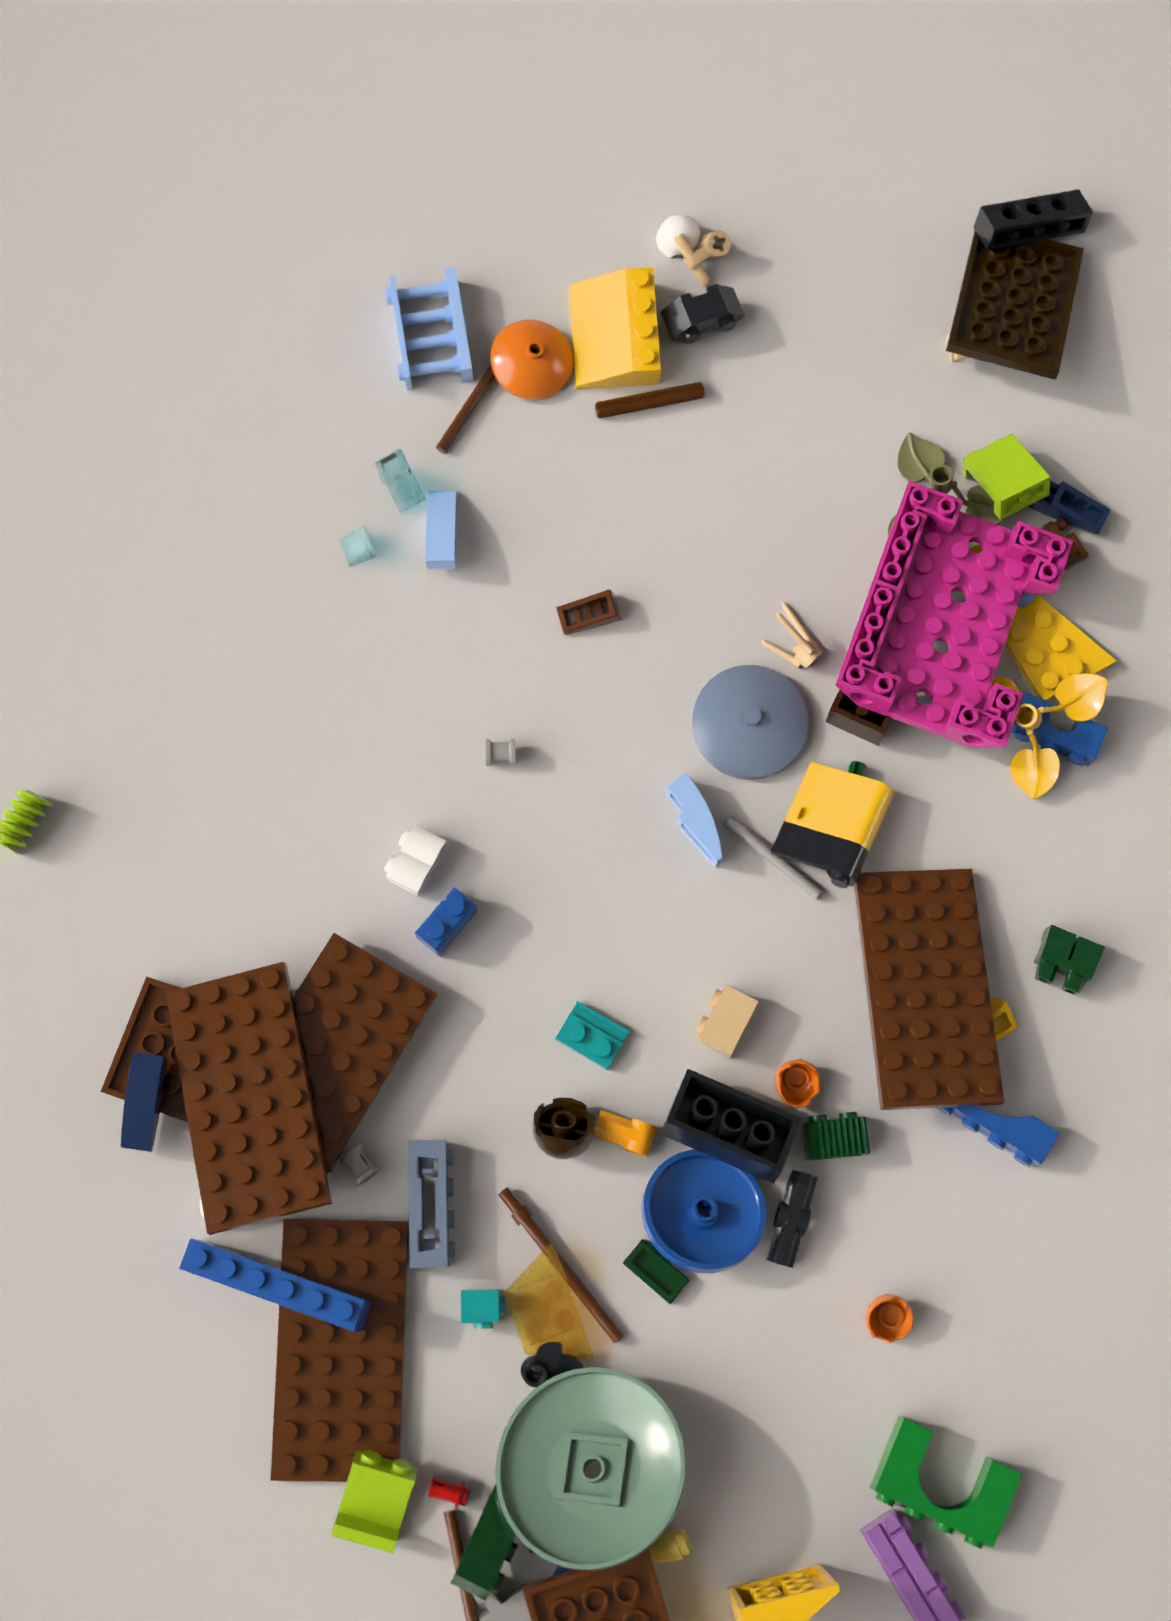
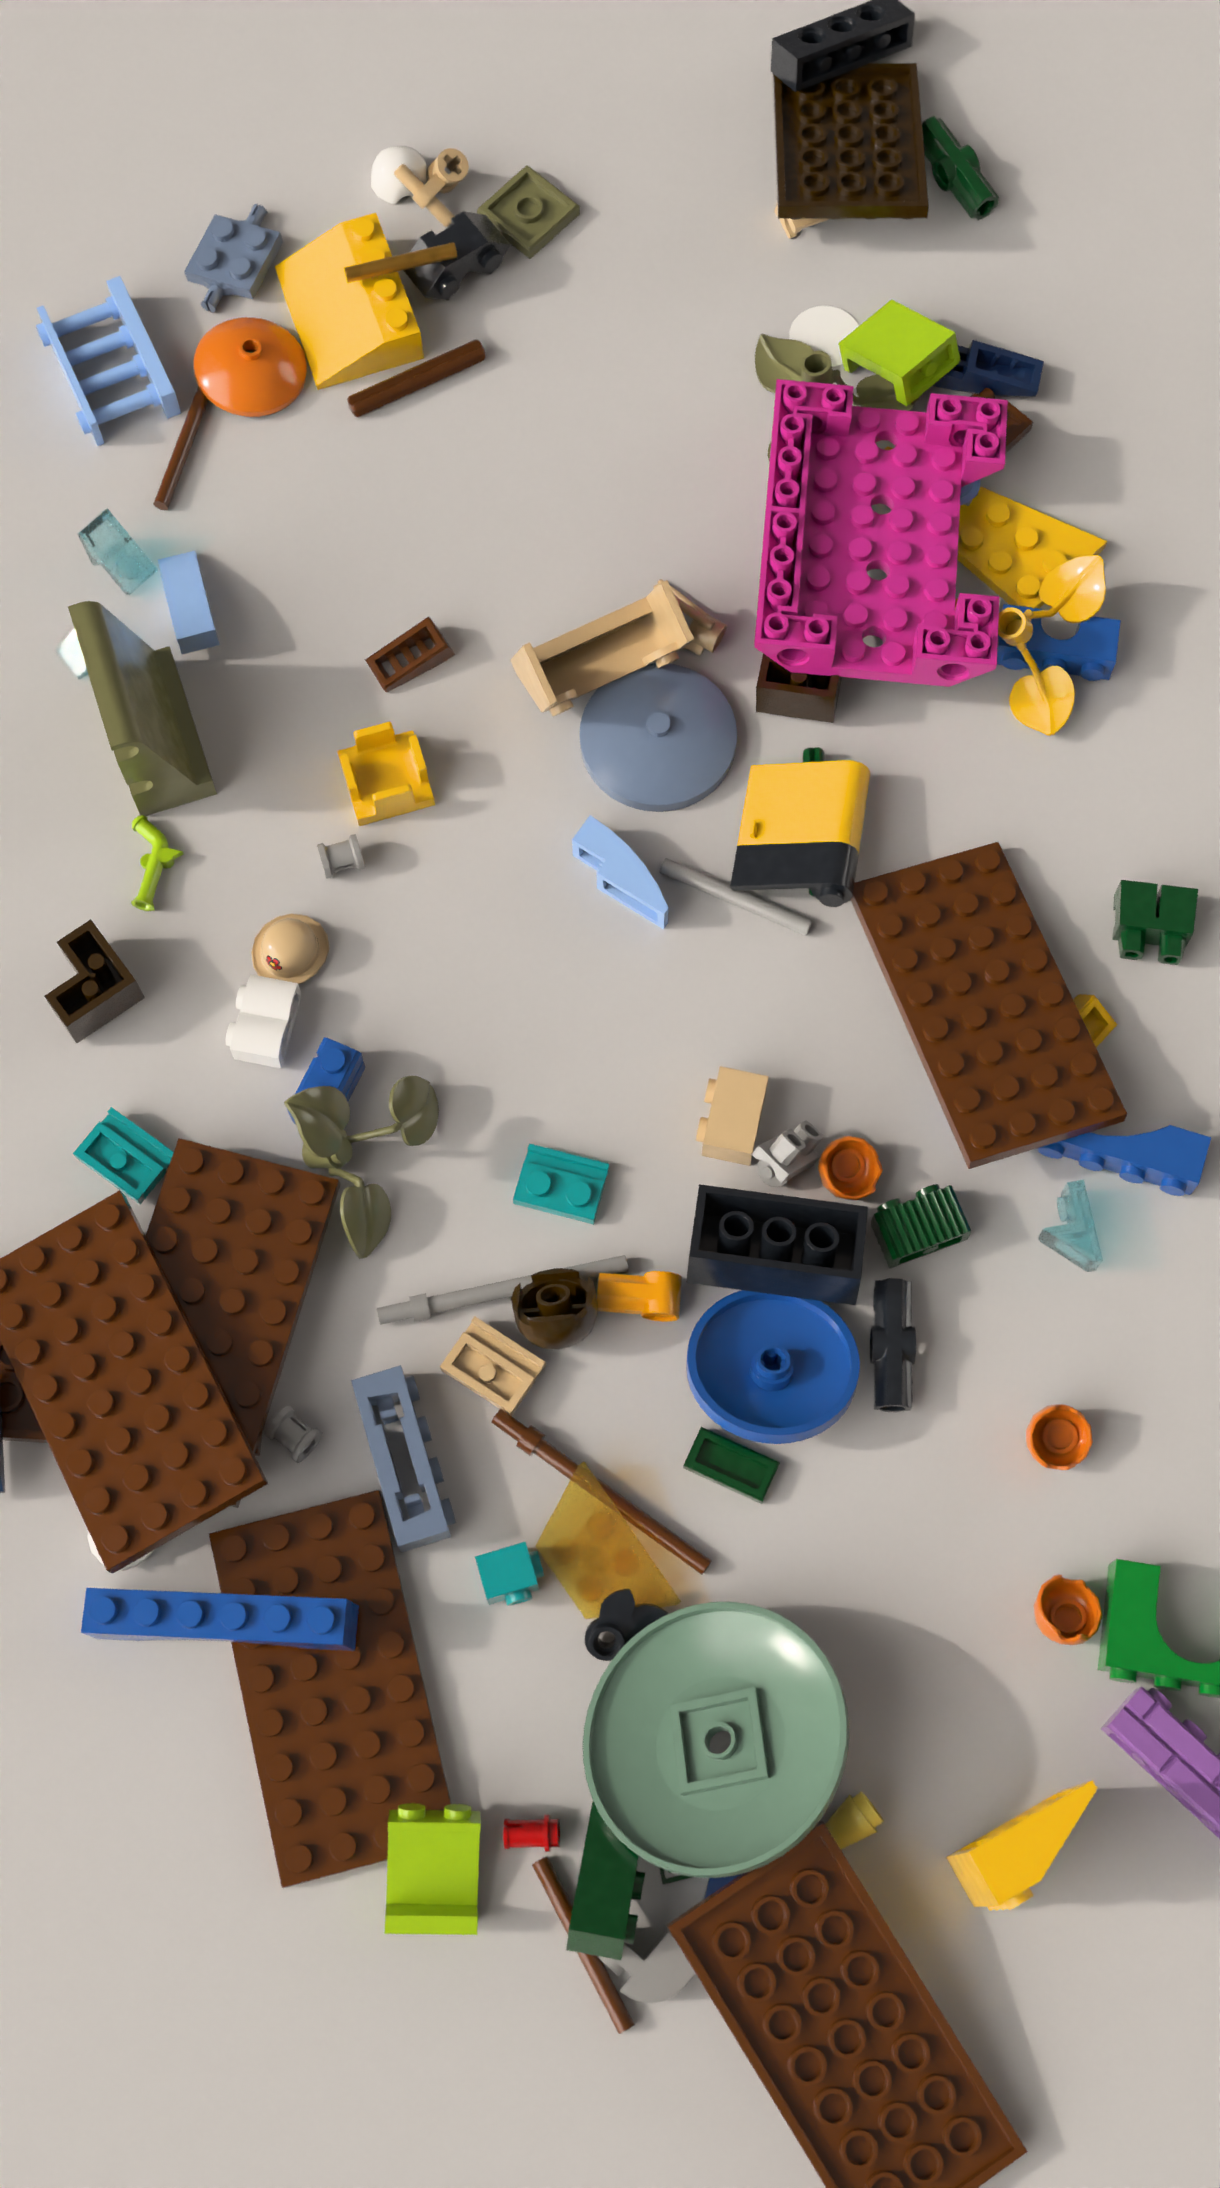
camera: 10 degrees left, 5 degrees down
(294, 931) = (125, 1155): none -> teal plate
(308, 804) = (100, 987): none -> dark brown brick
(368, 719) = (160, 858): none -> lime piece
(387, 611) = (142, 712): none -> olive panel
(435, 963) = (321, 1119): none -> olive plant
(447, 810) = (290, 948): none -> tan hat
(471, 1098) = (422, 1306): none -> light grey bar
(509, 1155) = (492, 1366): none -> tan plate
(541, 270) = (233, 257): none -> sand blue plate
(548, 698) = (385, 774): none -> yellow panel
(661, 313) = (400, 262): none -> pearl gold bar
(726, 649) = (603, 650): none -> tan windscreen
(757, 1060) = (787, 1154): none -> light grey hips
(765, 290) = (529, 211): none -> olive tile
(860, 1443) = (1067, 1611): none -> orange hair
(944, 1179) = (1078, 1238): none -> clear light blue slope
(956, 441) = (823, 329): none -> white sticker
(1090, 340) = (957, 169): none -> dark green piece

